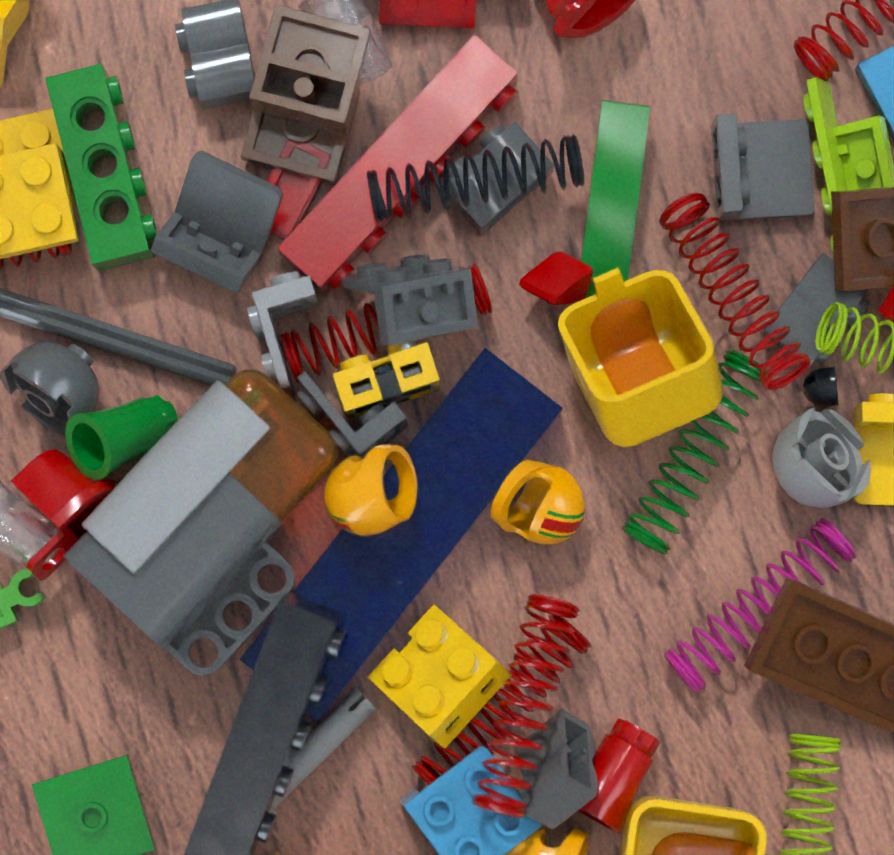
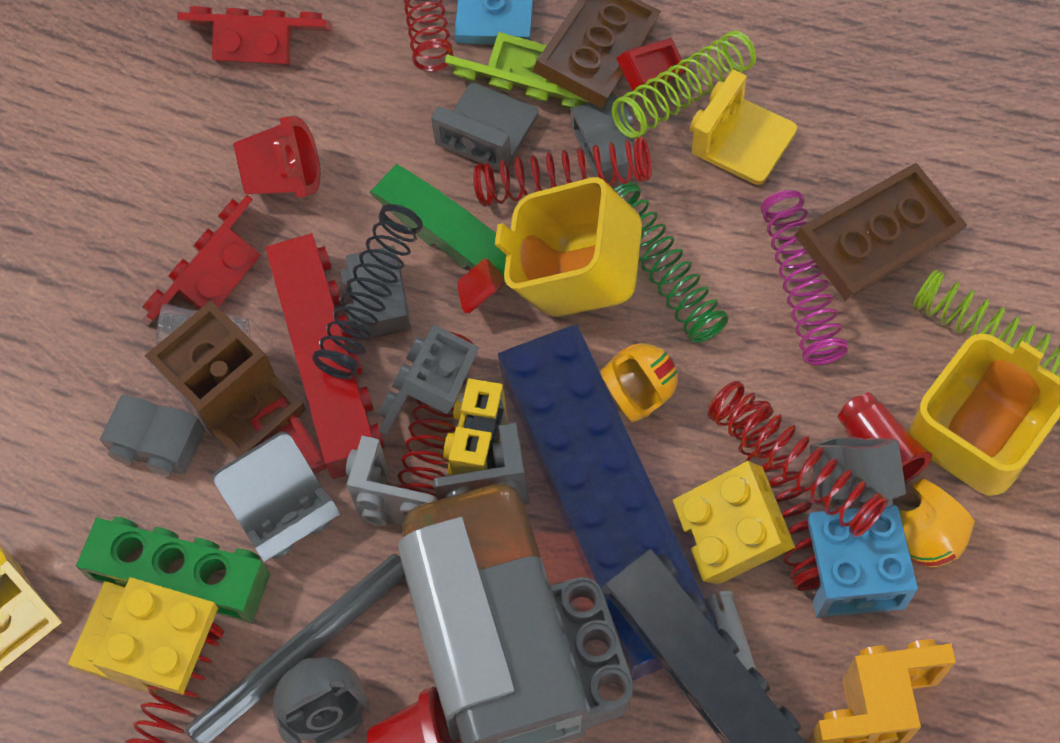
camera: 55 degrees left, 20 degrees down
(117, 435) = (389, 671): green plant -> none
(357, 495) = (559, 479): light orange helmet -> none
(820, 459) = (718, 185): light grey cylinder -> none
(821, 387) = (666, 161): black hinge -> none

